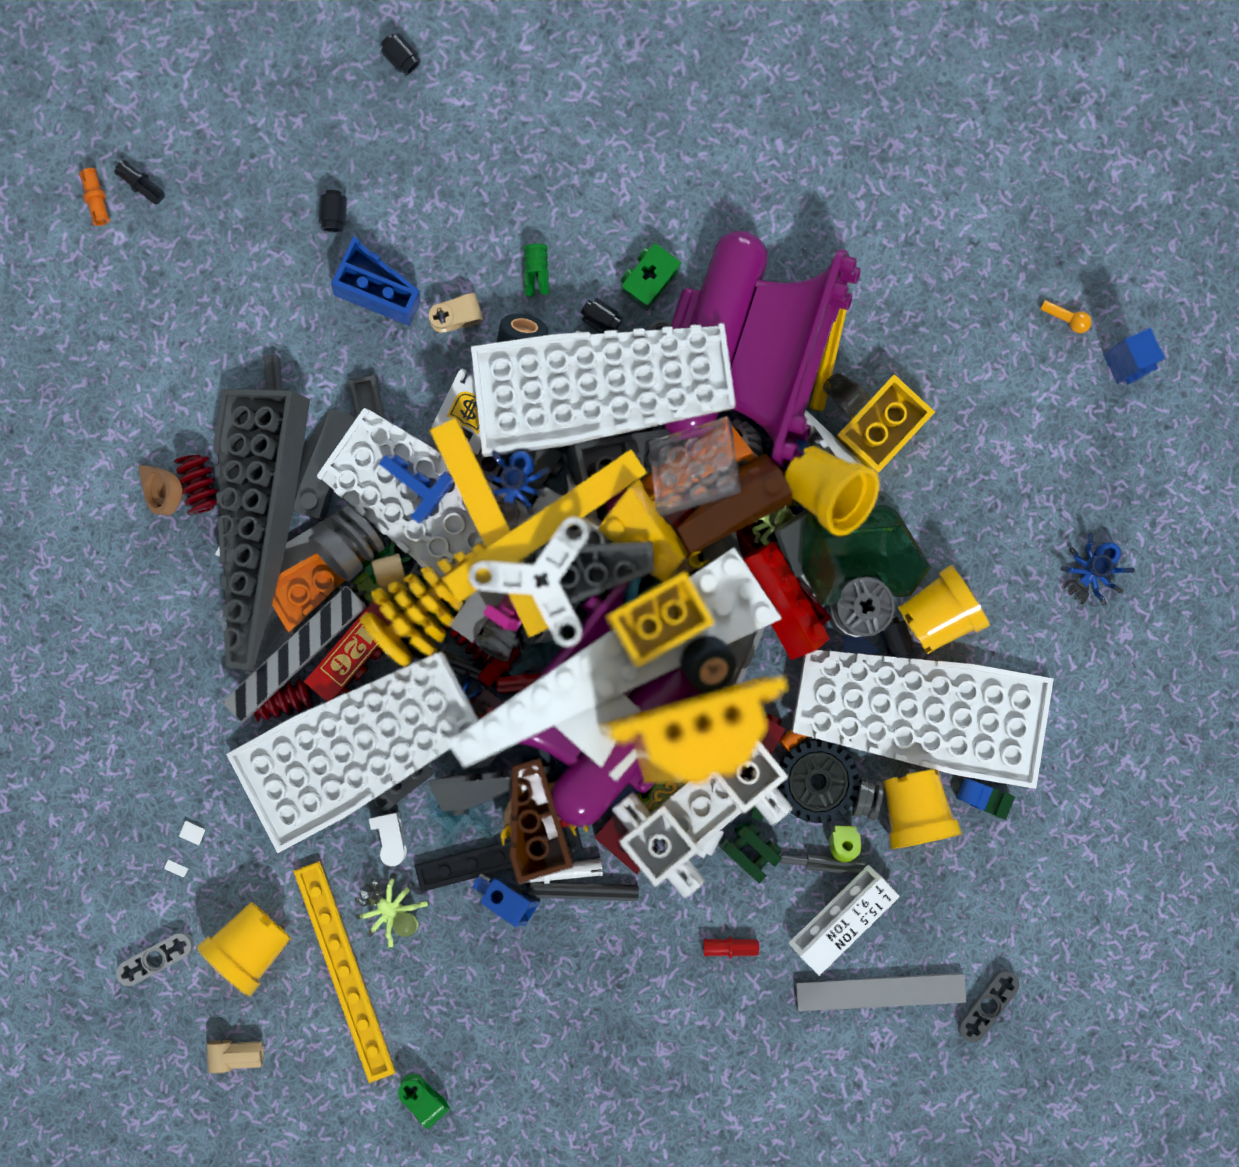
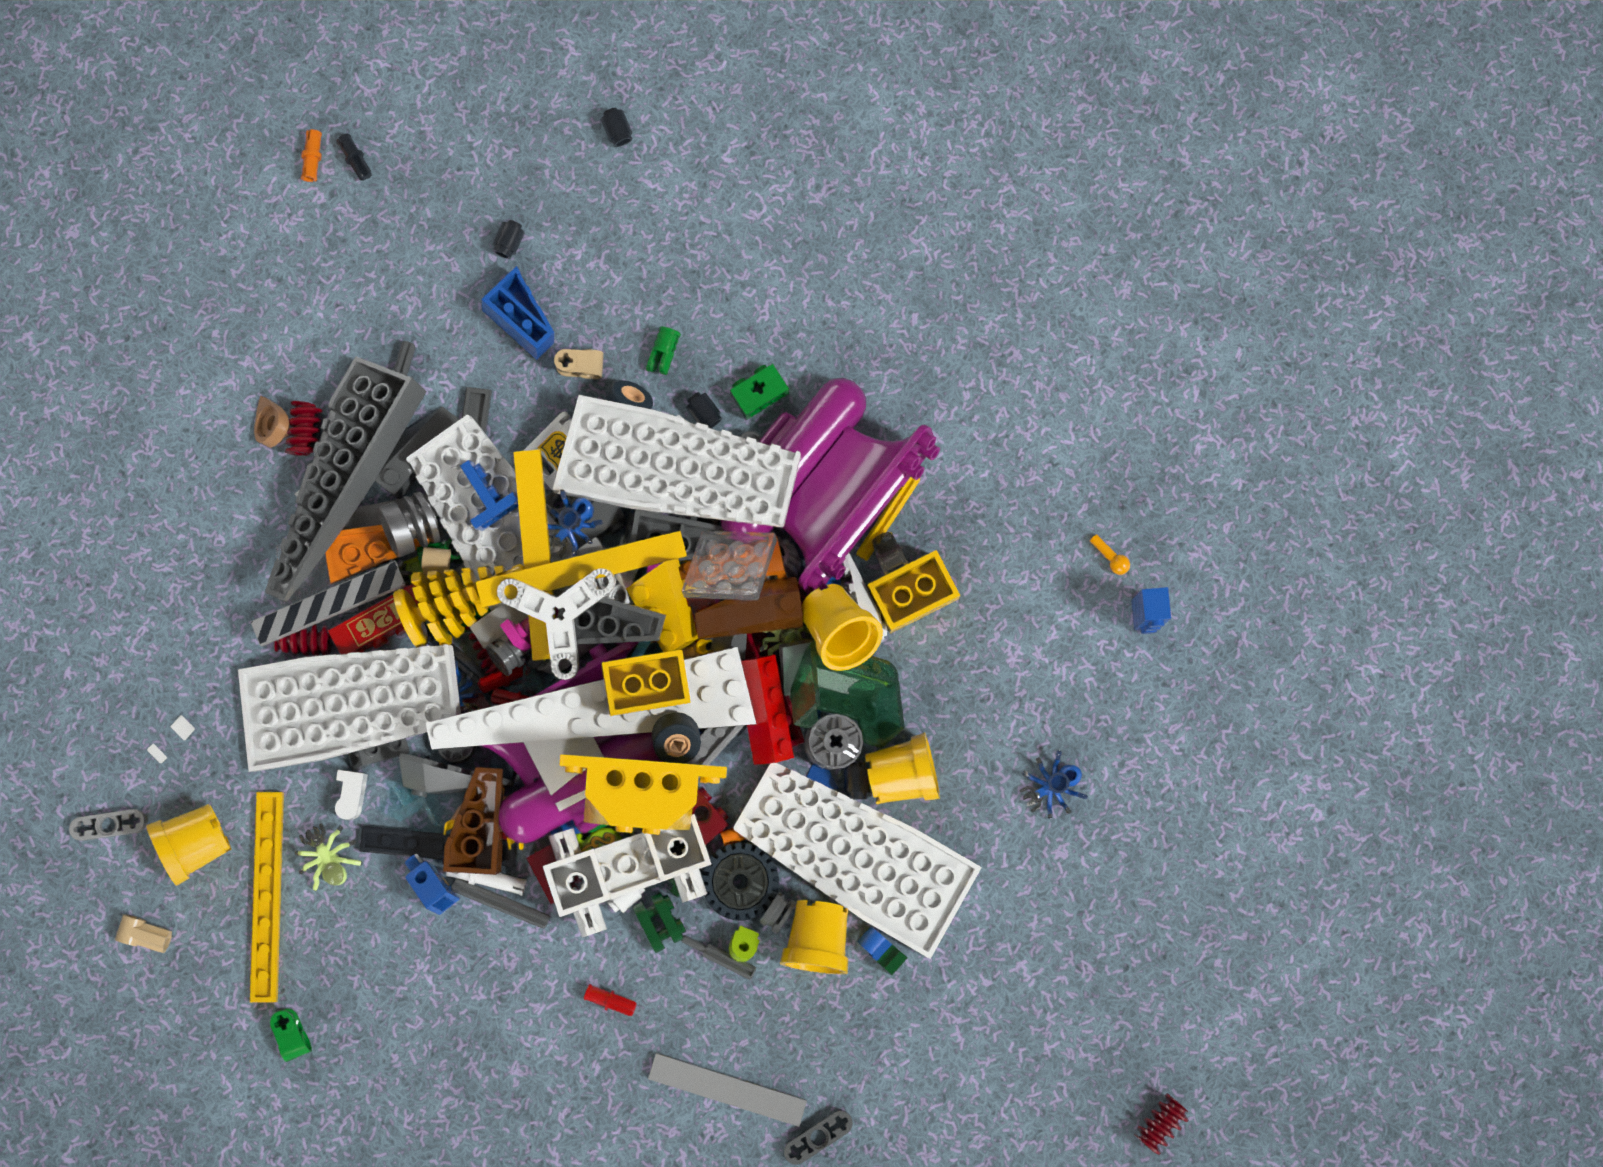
camera: 20 degrees right, 5 degrees down
(843, 920) = (717, 1012): white brick -> none

